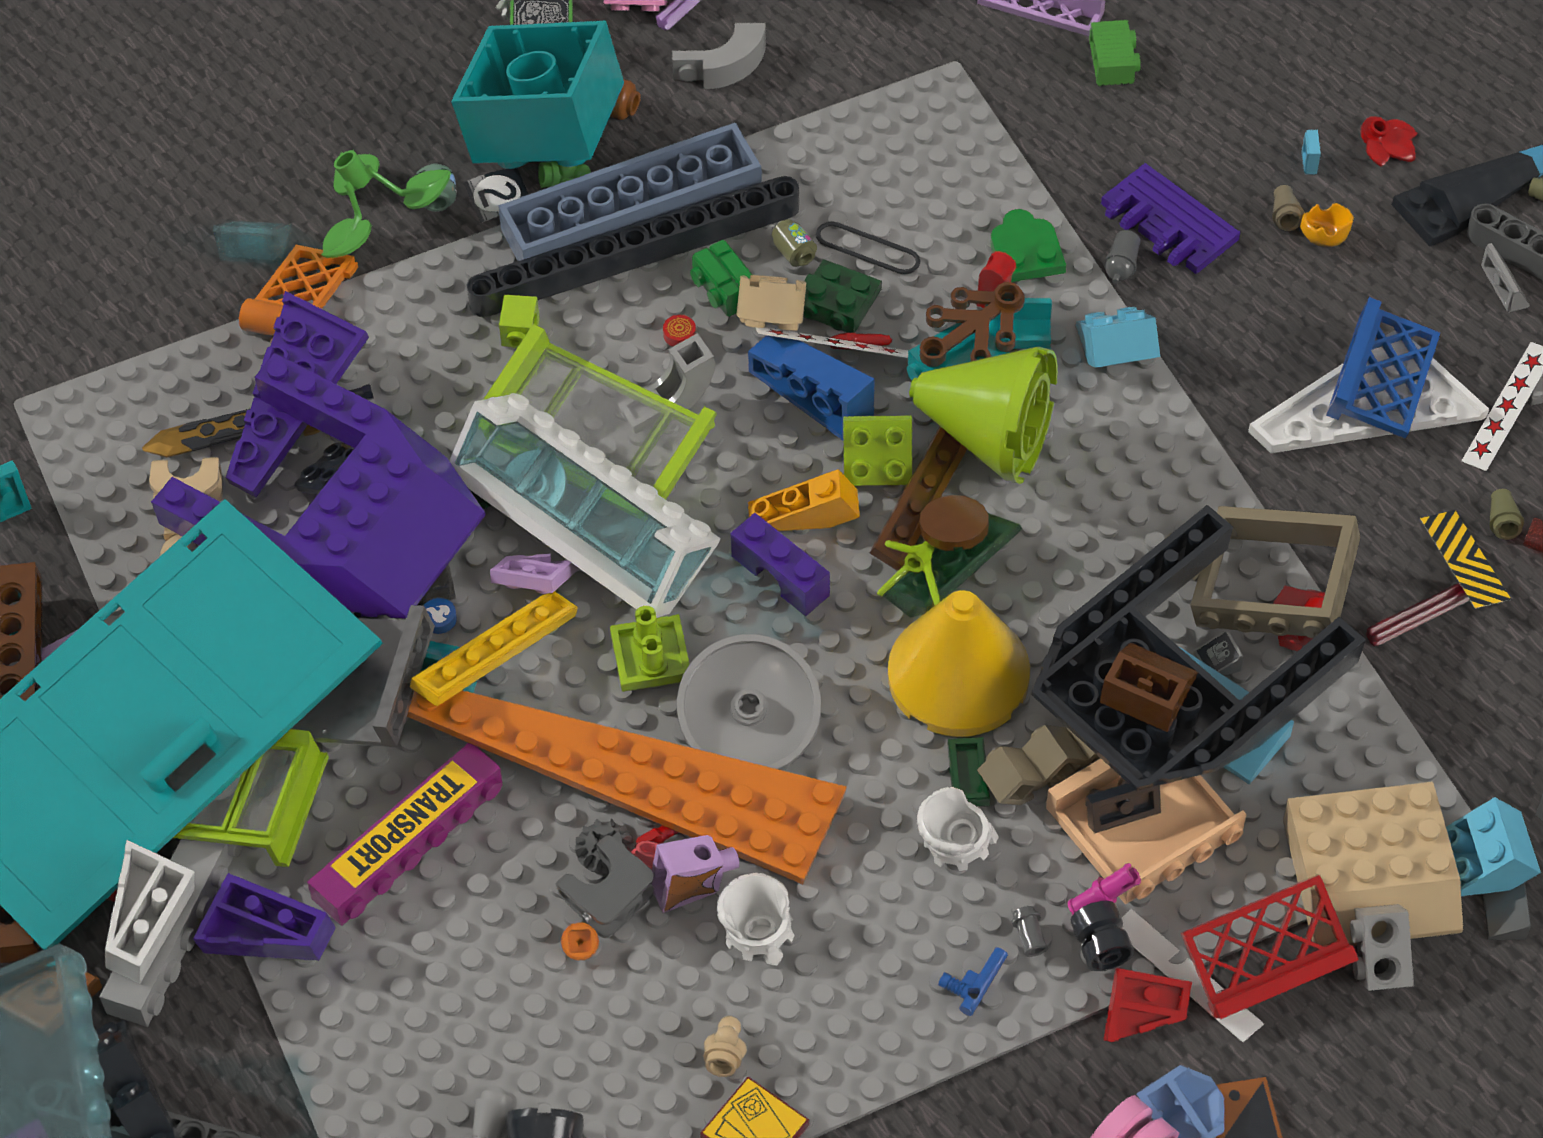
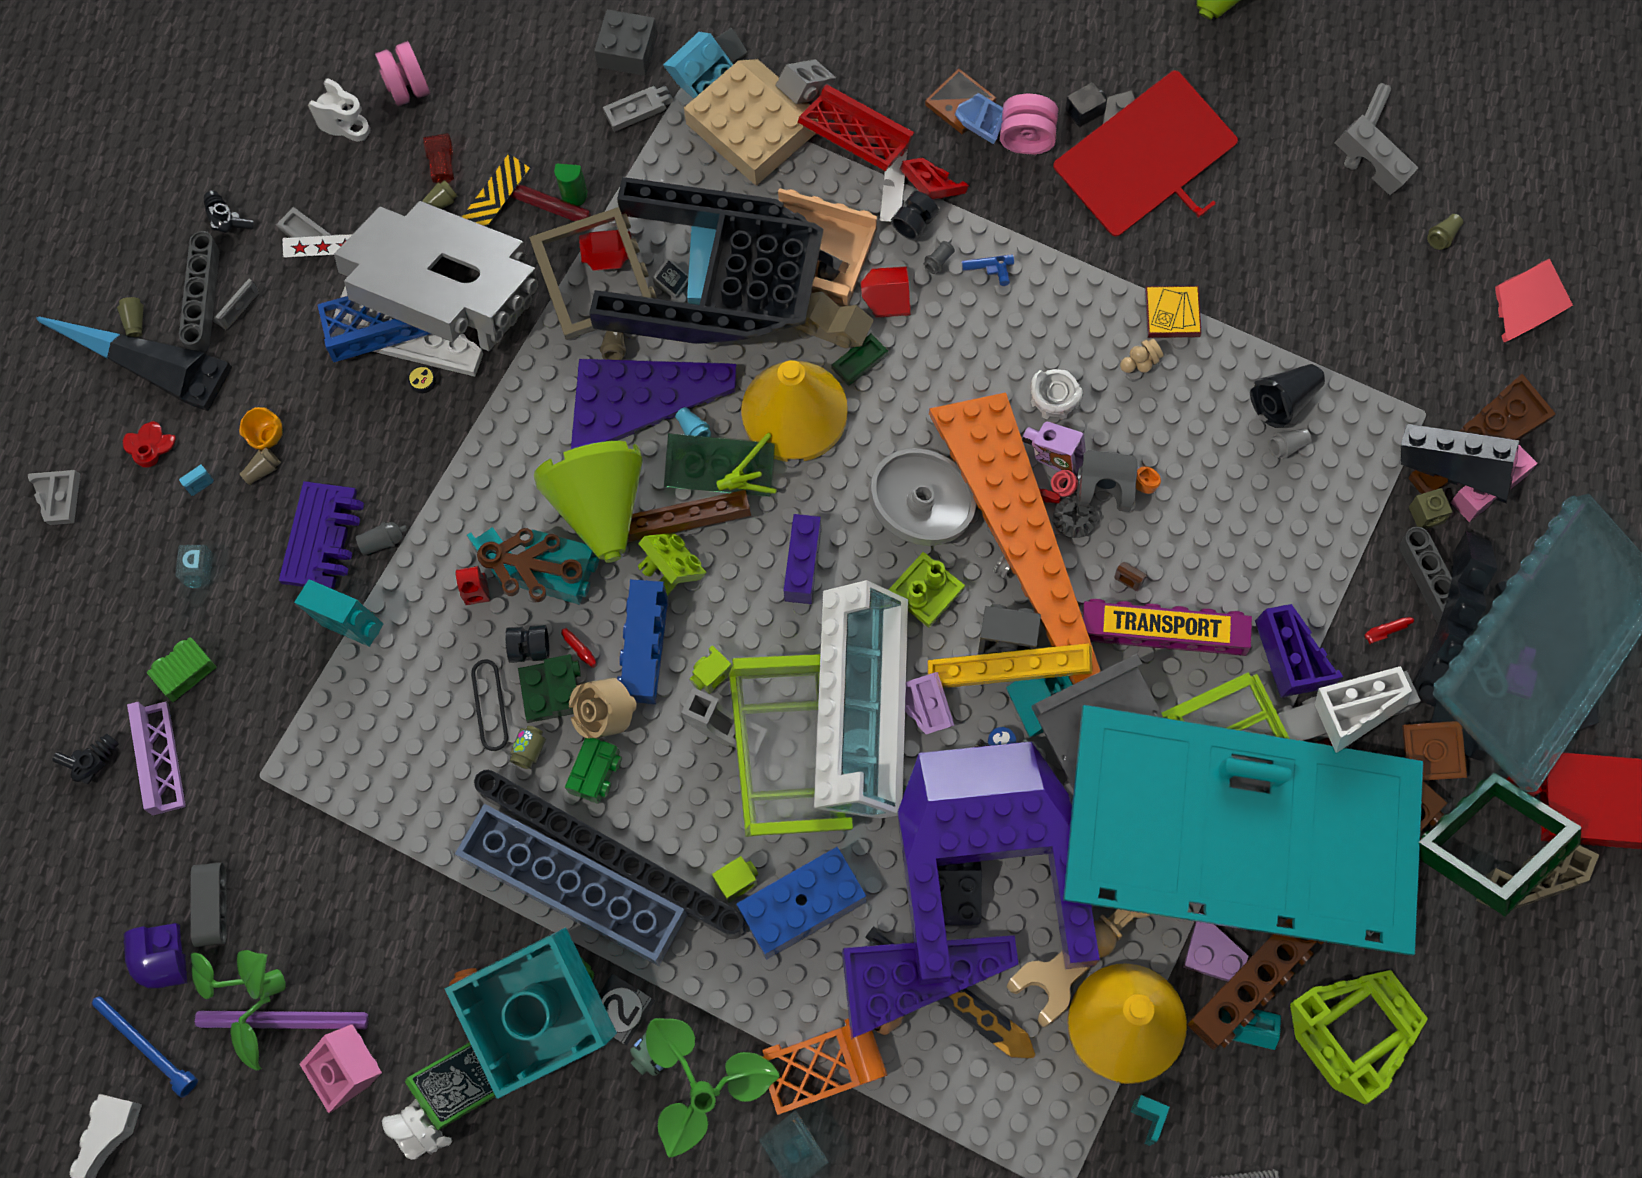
camera: 125 degrees left, 15 degrees up
(90, 528) = (1127, 1023): none -> yellow cone
(211, 1056) = (1381, 632): none -> red piece
(446, 355) = (777, 918): none -> blue brick
(492, 847) = (1130, 576): none -> reddish brown slope
(528, 668) = (1008, 630): none -> dark grey slope
(678, 329) = (658, 770): red tile -> none
(724, 64) = (367, 929): light grey arch -> none
(736, 423) = (710, 671): none -> lime brick
(810, 504) = (745, 580): light orange slope -> none
(833, 342) = (600, 648): white sticker -> none
(897, 295) = (537, 643): none -> black wheel
(954, 522) = (694, 475): reddish brown tile -> none
(954, 828) = (911, 330): white hair -> none
(1016, 566) = (692, 424): none -> medium azure cone
(1030, 244) = (417, 600): green plate -> none
(1032, 854) = (887, 291): none -> red slope
(1057, 169) = (339, 613): none -> teal brick
(1098, 536) = (632, 394): none -> dark purple wing
(1107, 888) = (889, 227): dark pink pin -> none
(1118, 337) = (460, 486): medium azure slope -> none
(1147, 686) = (754, 252): reddish brown slope -> none
(1216, 108) = (194, 565): none -> clear light blue brick
(1281, 385) = (422, 379): none -> tile
(1384, 49) = (56, 495): none -> light grey wing
(1419, 627) = (571, 183): none -> green brick
(1442, 411) = (391, 273): none -> light grey panel
(1488, 764) = (637, 107): none -> light grey hinge

